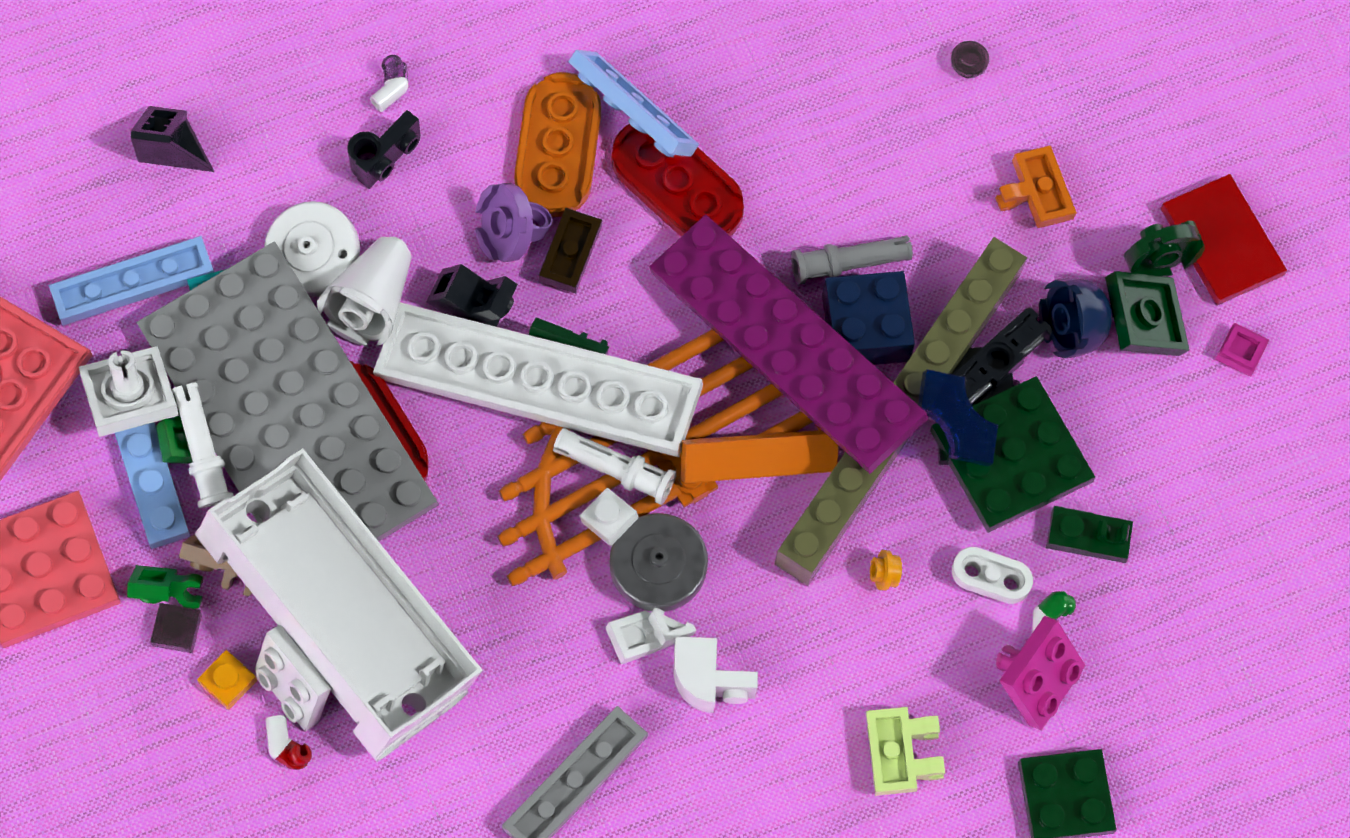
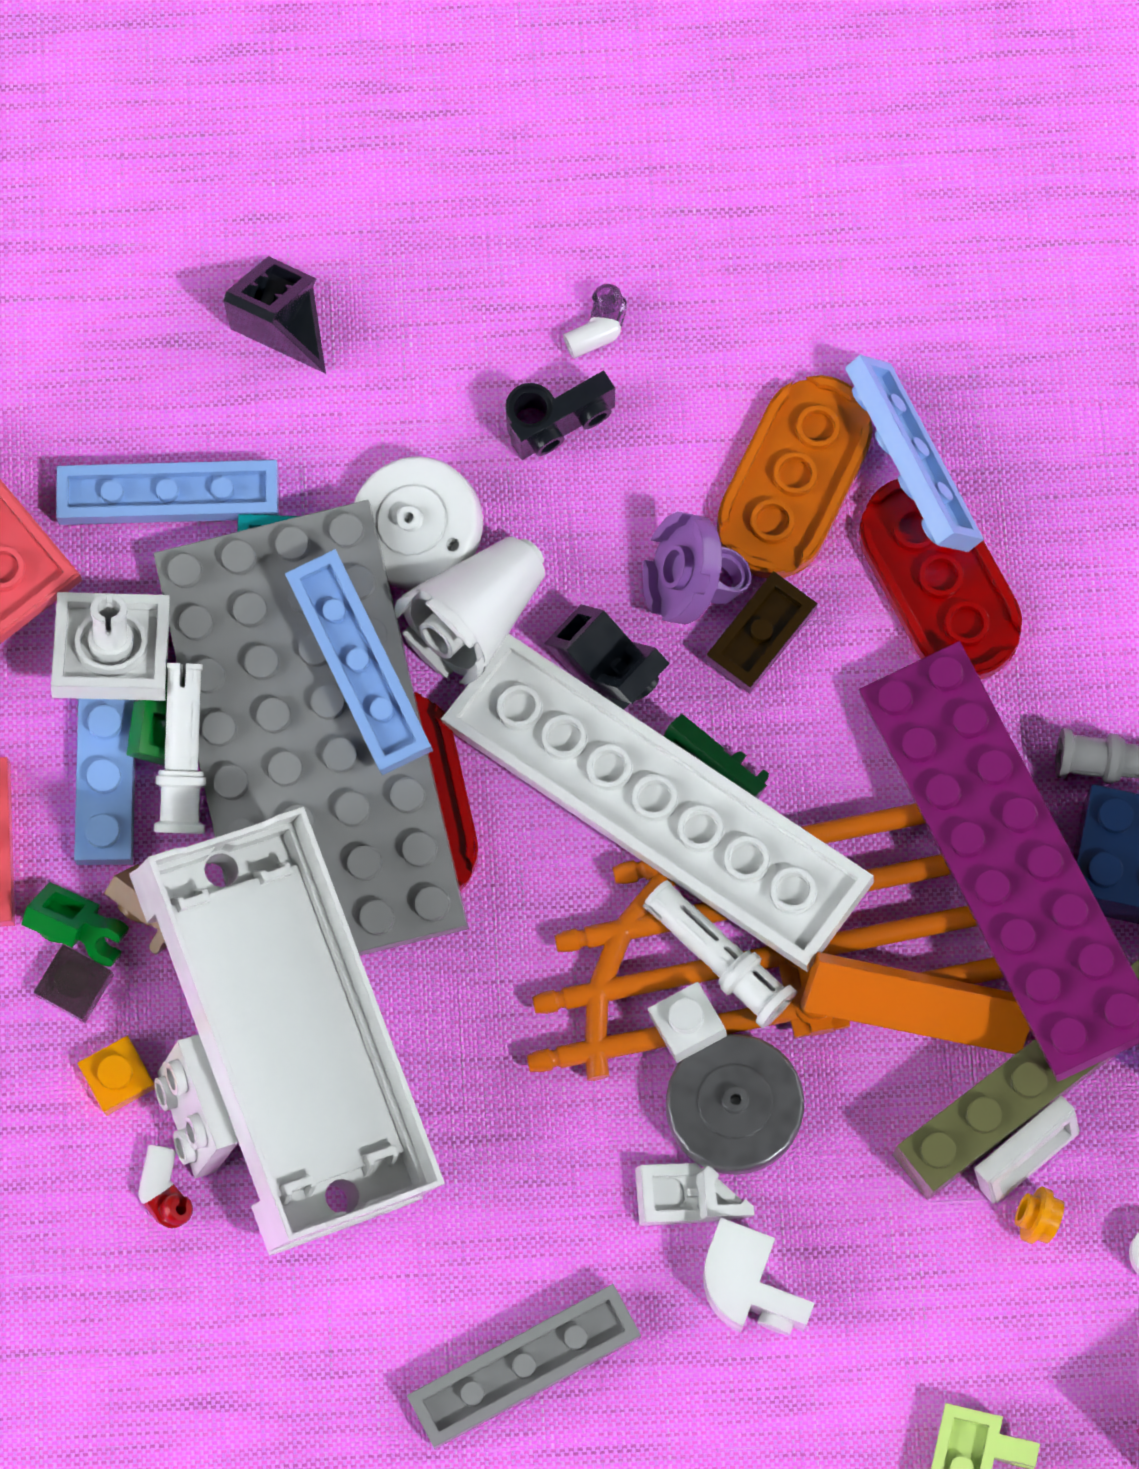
camera: 25 degrees right, 5 degrees up
(305, 347) = (359, 662): none -> light blue plate
(863, 529) = (1027, 1150): none -> white tile

